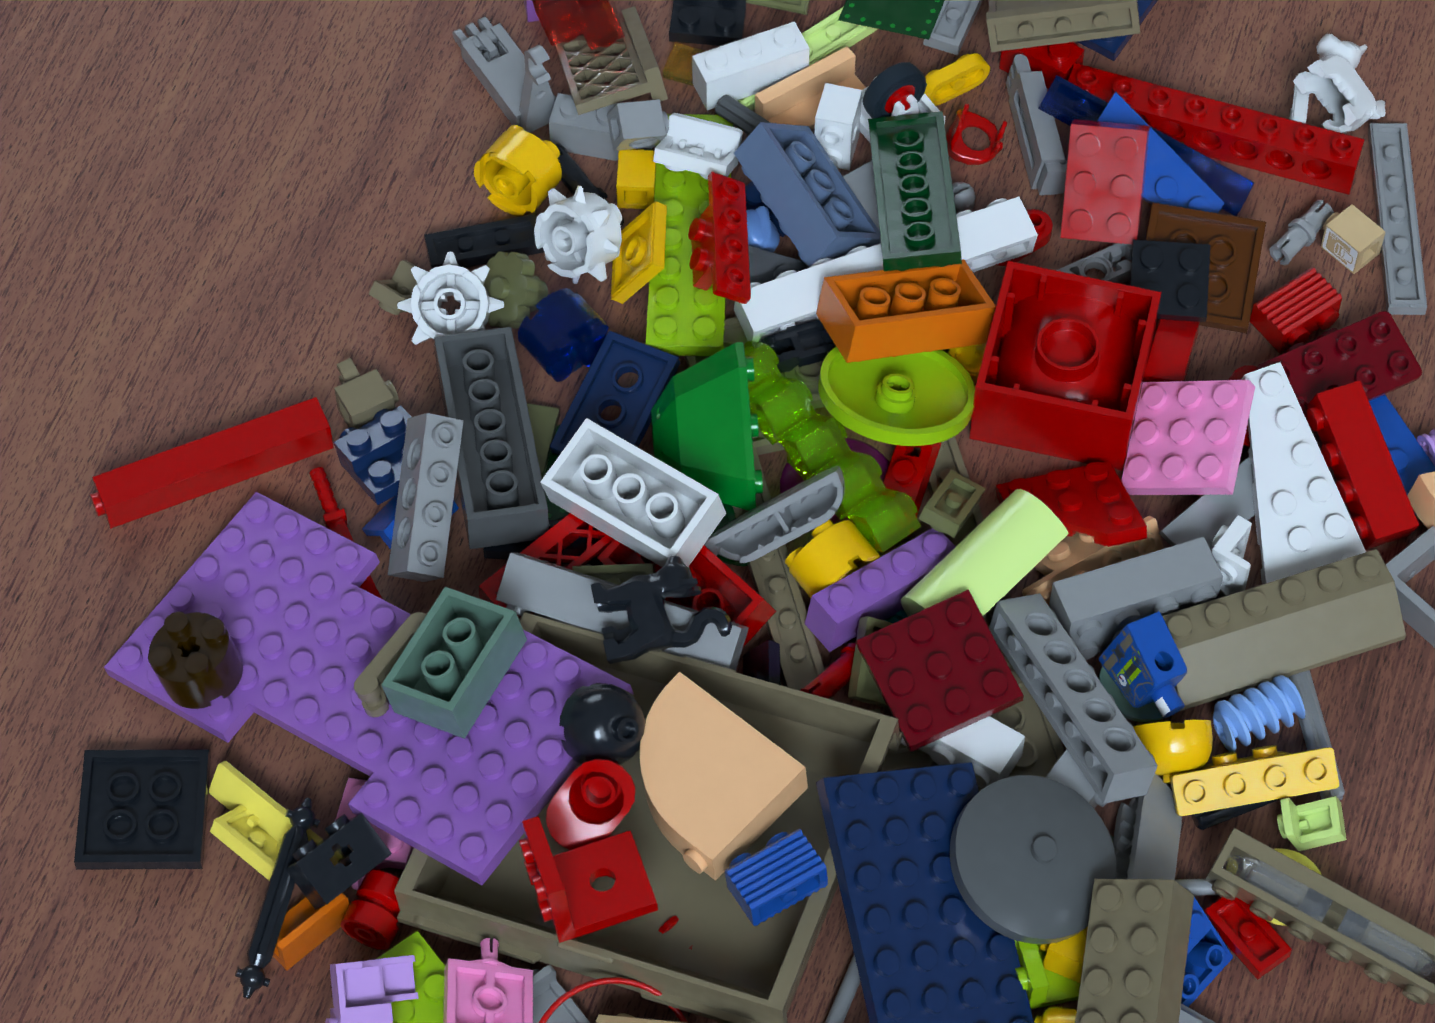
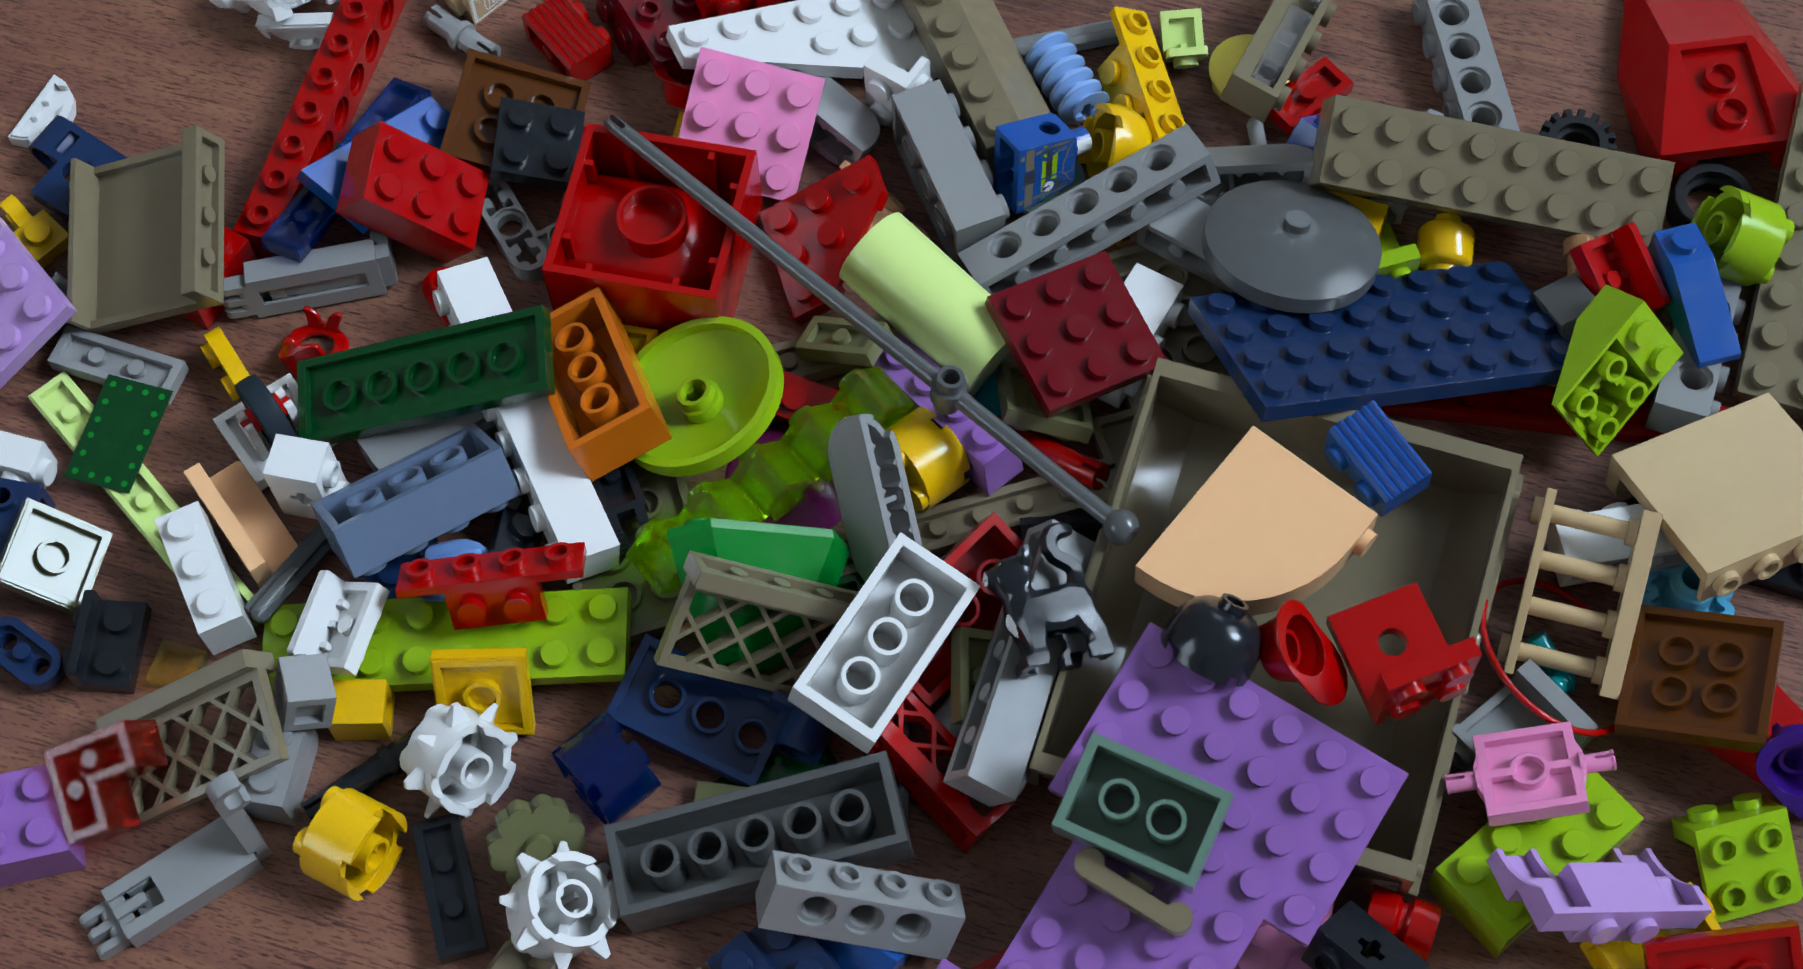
camera: 90 degrees left, 5 degrees up
(690, 406) = (756, 587): none -> dark tan fence
(874, 548) = (946, 386): none -> dark grey bar

